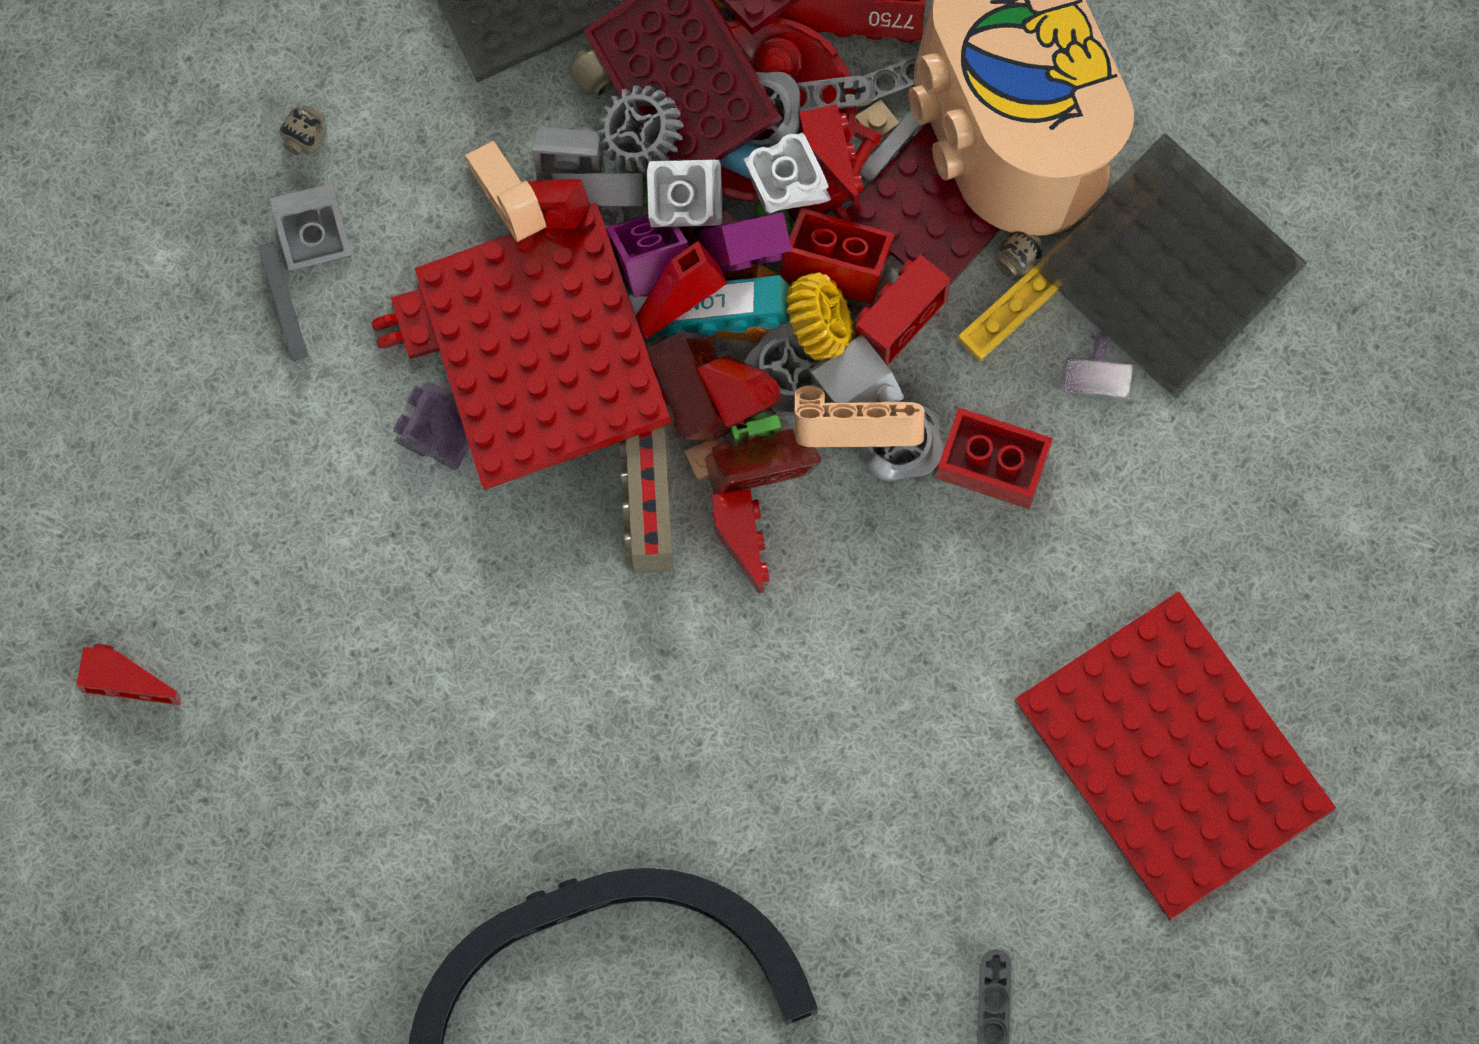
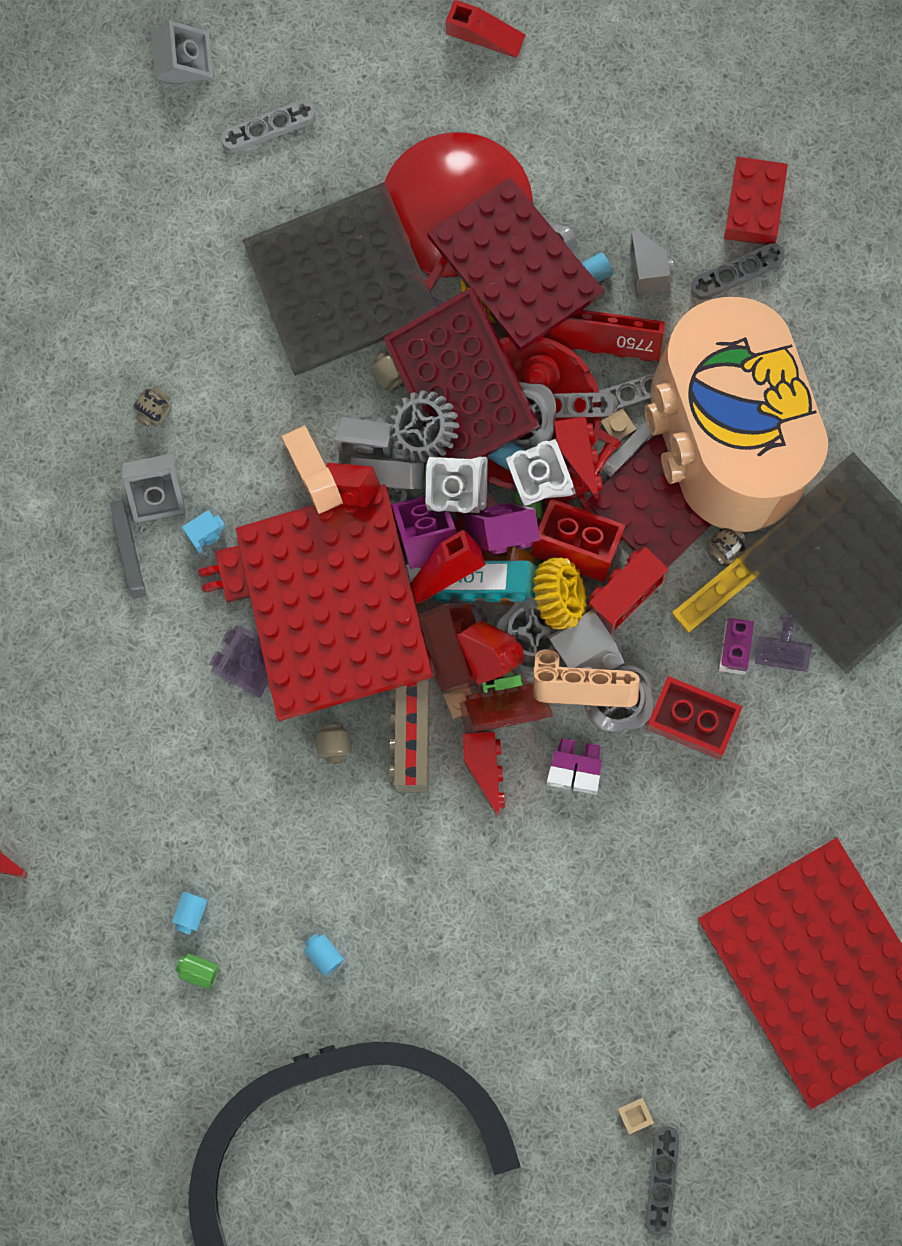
camera: 10 degrees right, 5 degrees up
(375, 273) = (204, 530): none -> medium azure brick
(385, 731) = (189, 913): none -> medium azure brick
(400, 801) = (197, 971): none -> bright green brick
(552, 516) = (333, 743): none -> dark tan head
(555, 770) = (323, 954): none -> medium azure brick
(838, 524) = (563, 767): none -> hips
(955, 940) = (635, 1116): none -> tan plate
(1039, 370) = (736, 646): none -> magenta hips

